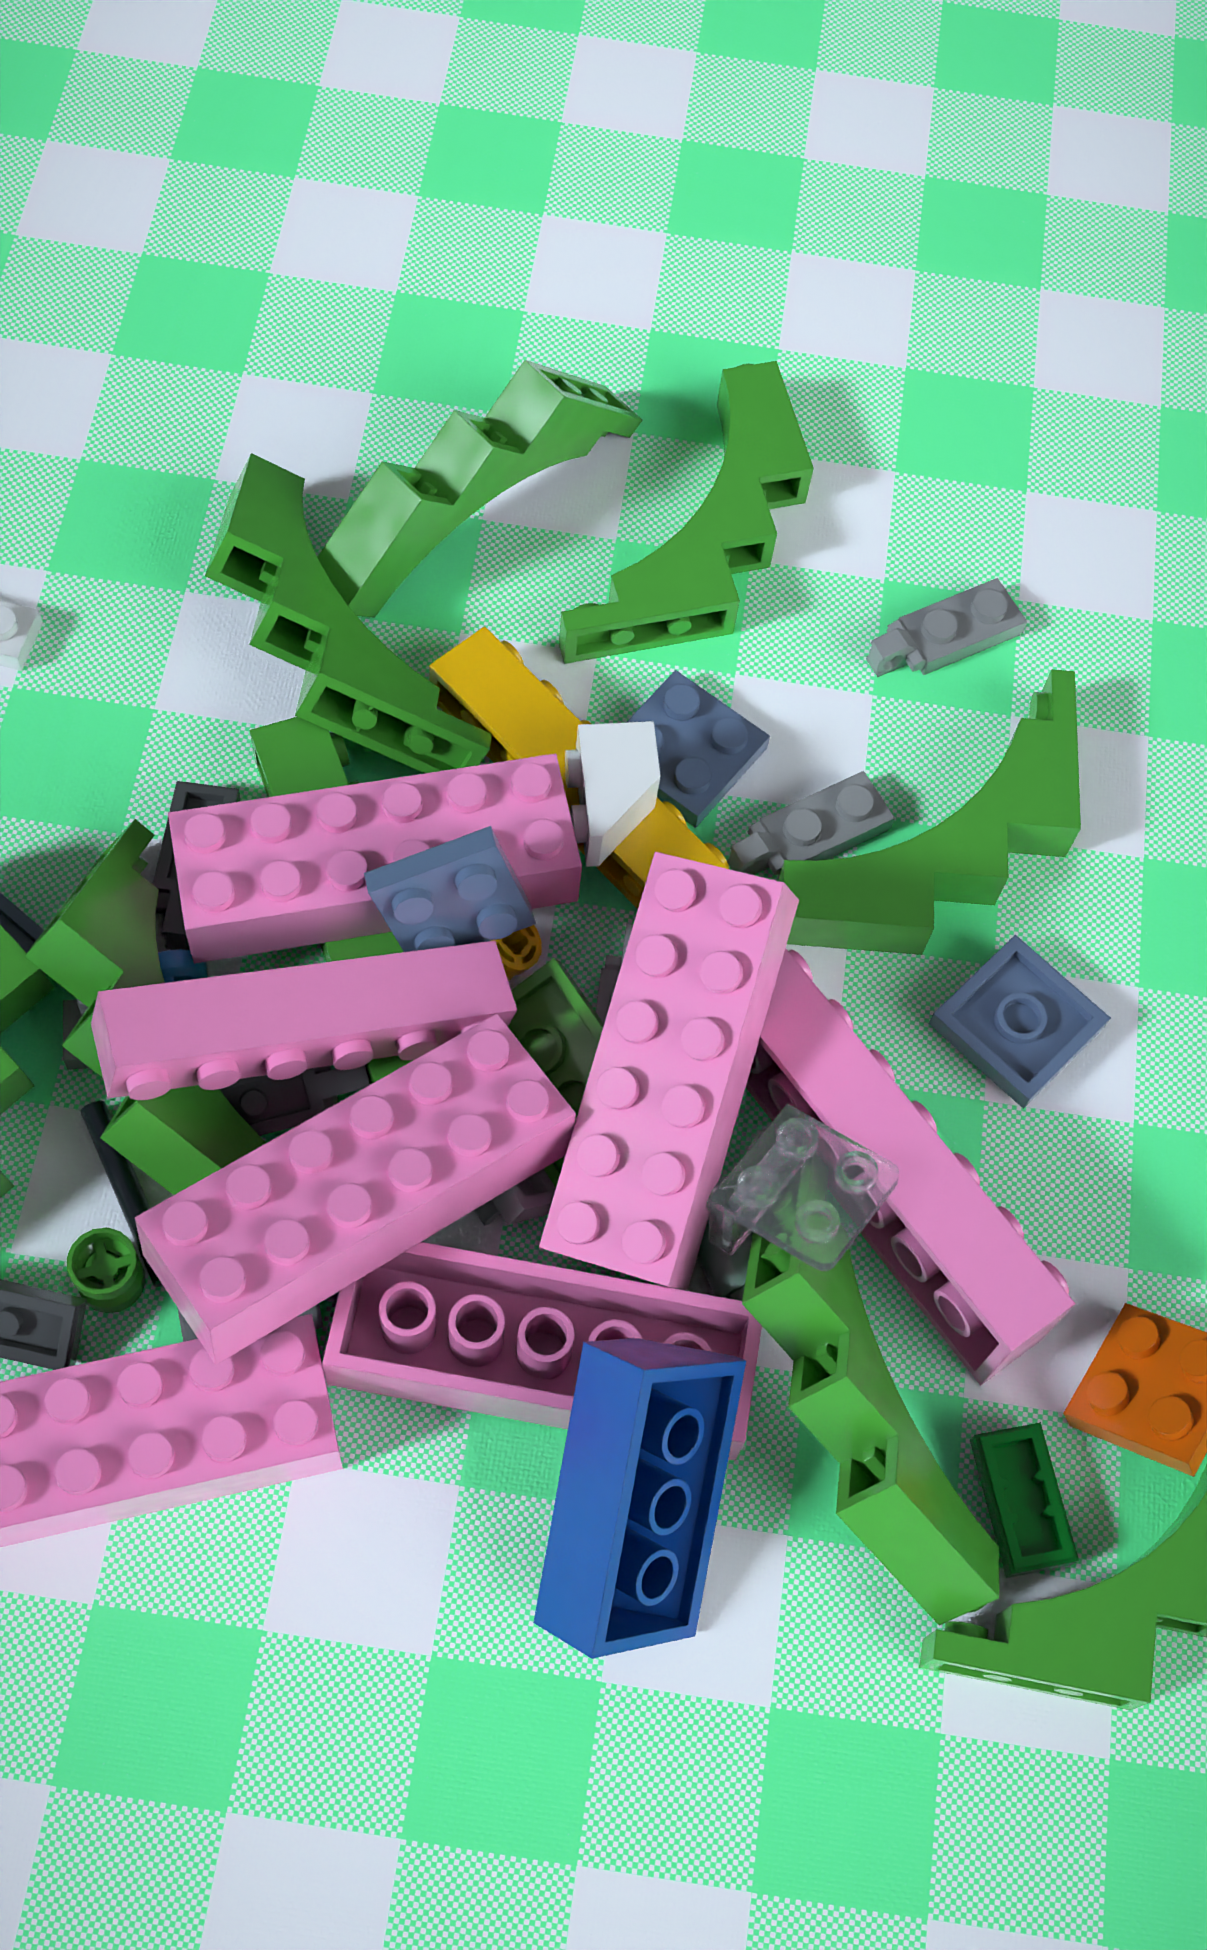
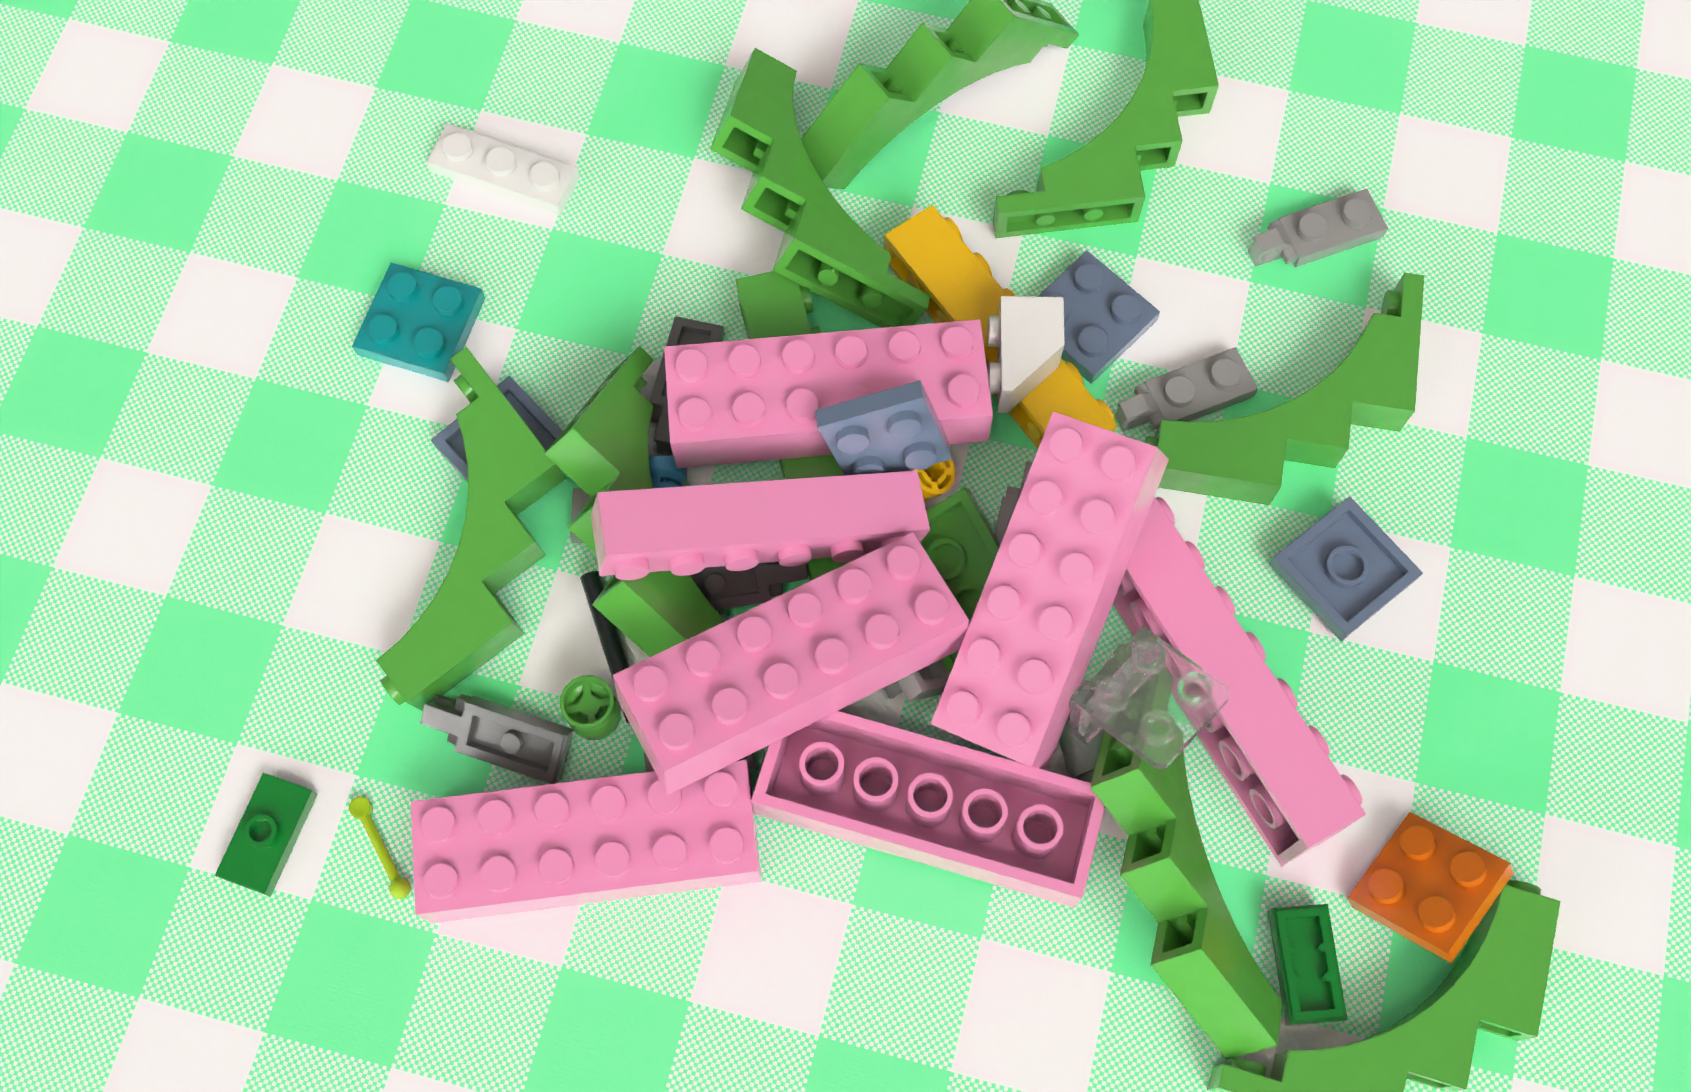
camera: 15 degrees right, 5 degrees up
(638, 1495) = (992, 930): blue slope -> none

